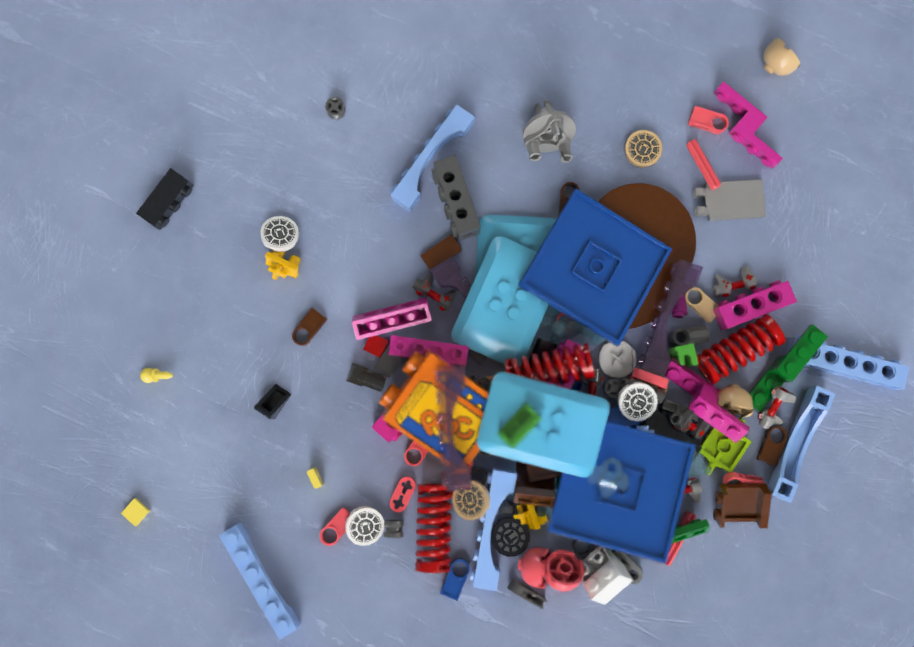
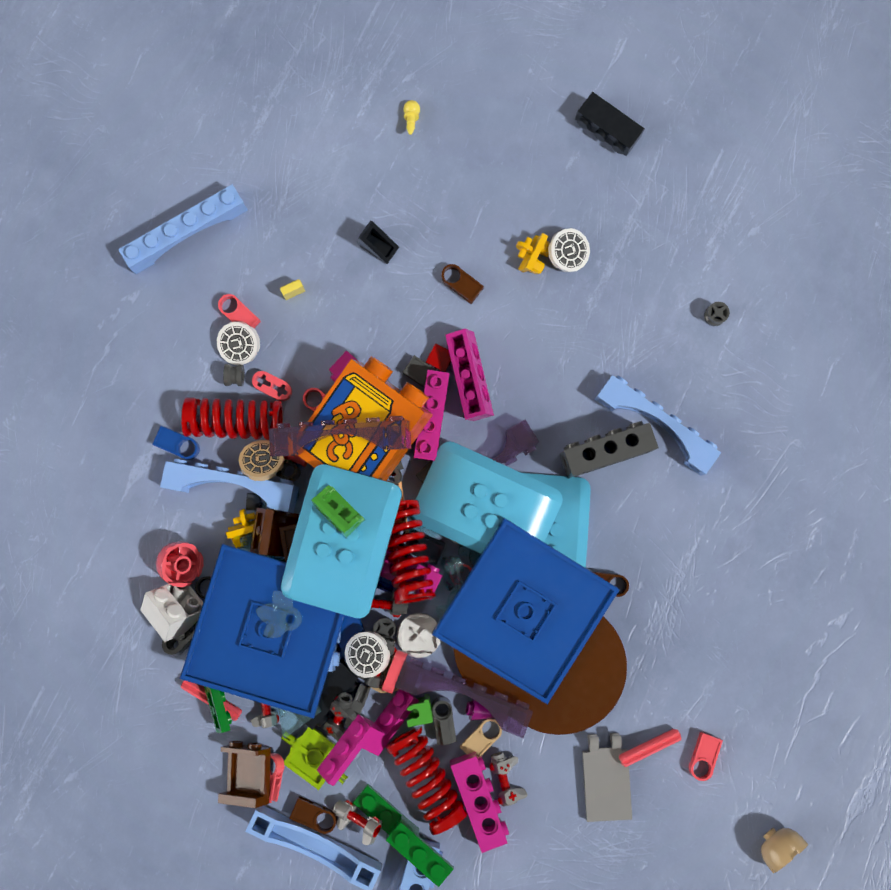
camera: 90 degrees right, 0 degrees up
(135, 512) = (262, 97): light yellow tile -> none
(362, 376) = (404, 341): clear smoke piece -> none
(423, 288) = (505, 412): dark grey piece -> none
(440, 252) = (546, 433): reddish brown tile -> none
(510, 537) = (220, 505): tile -> none
(527, 593) = (156, 522): dark grey piece -> none
(533, 566) = (185, 529): coral cylinder -> none
(549, 132) = (687, 560): light grey piece -> none
(643, 148) = (669, 675): tile -> none
(736, 400) = (365, 771): tan cylinder -> none
(744, 130) = (698, 804): dark pink bracket -> none

